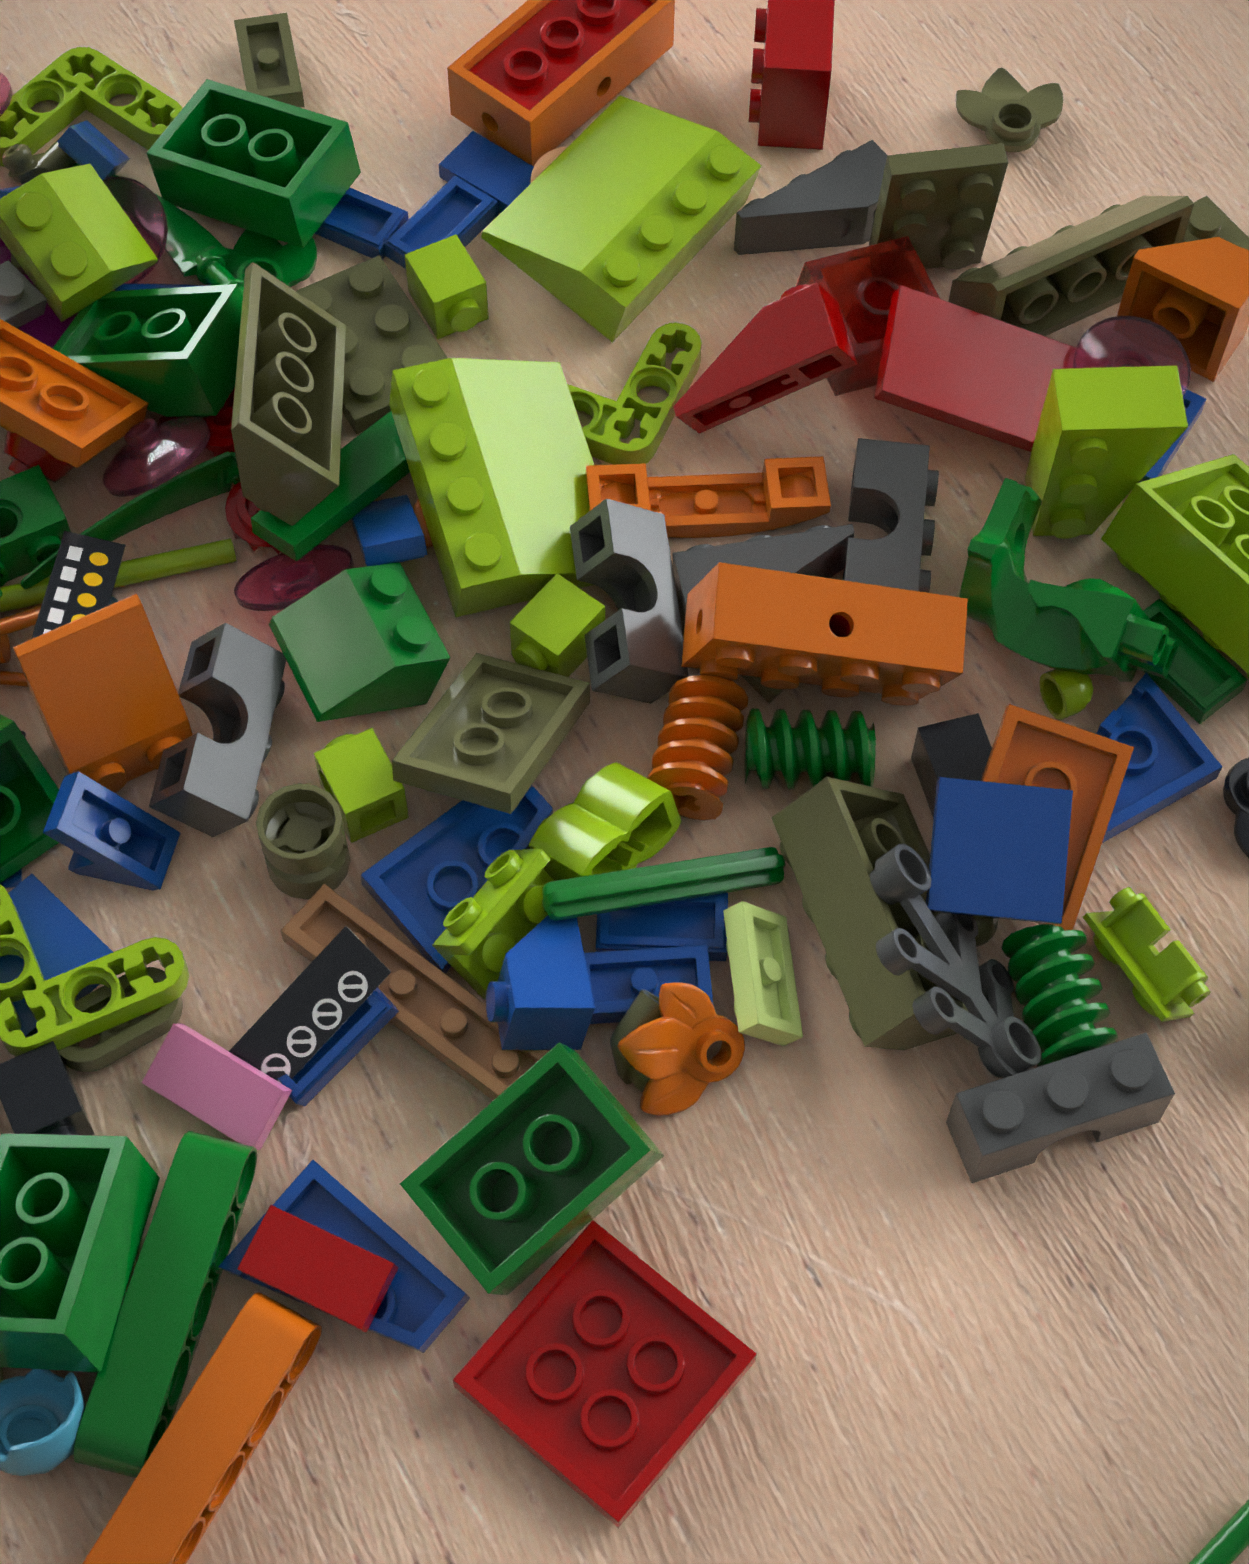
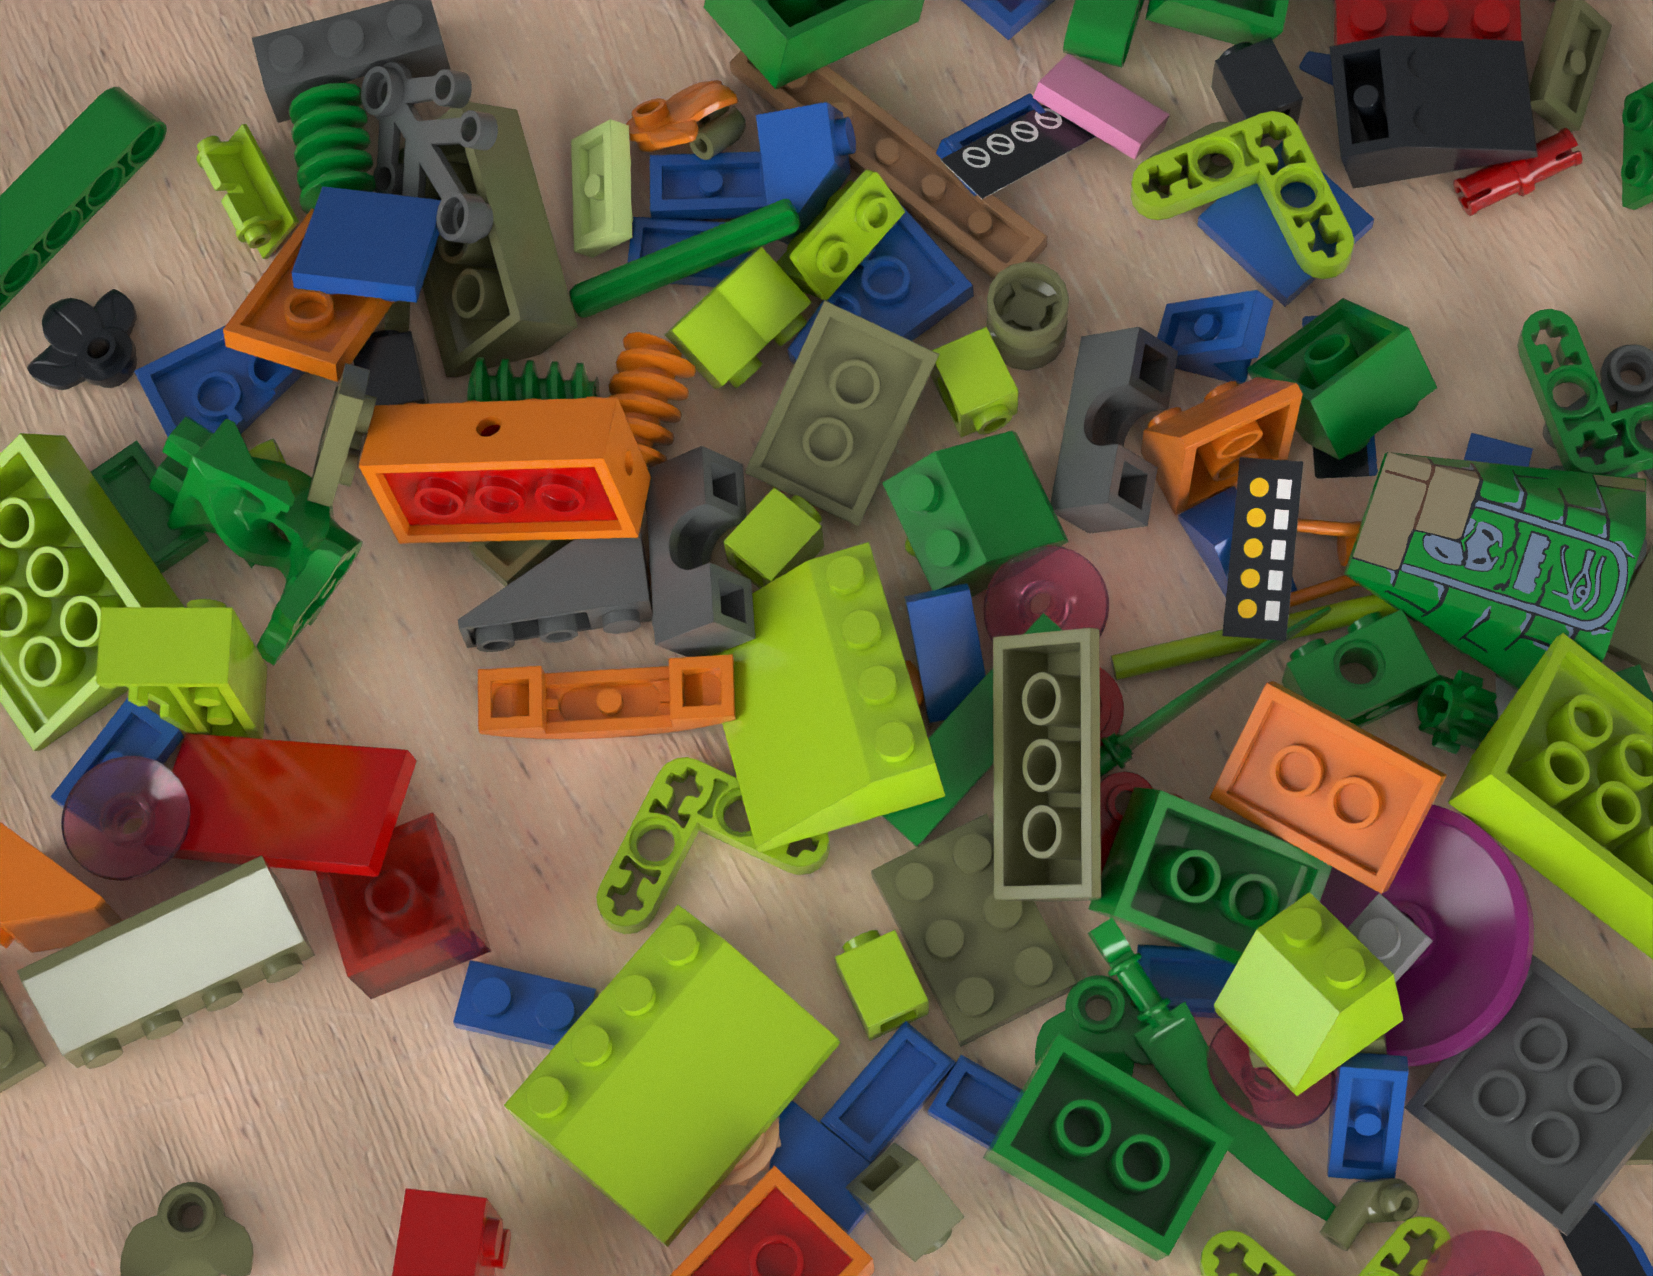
camera: 170 degrees left, 10 degrees up
(90, 146) = (1301, 1168): blue tile -> none
(155, 454) = (1179, 737): clear pink dish -> none
(424, 133) = (905, 1202): none -> olive brick
(746, 273) = (519, 1005): none -> blue plate
(774, 355) = (504, 818): red slope -> none
(816, 208) = (416, 1090): dark grey slope -> none
(891, 492) = (426, 595): dark grey arch -> none
(941, 202) = (309, 1002): olive plate -> none
(993, 664) = (342, 435): none -> olive plate

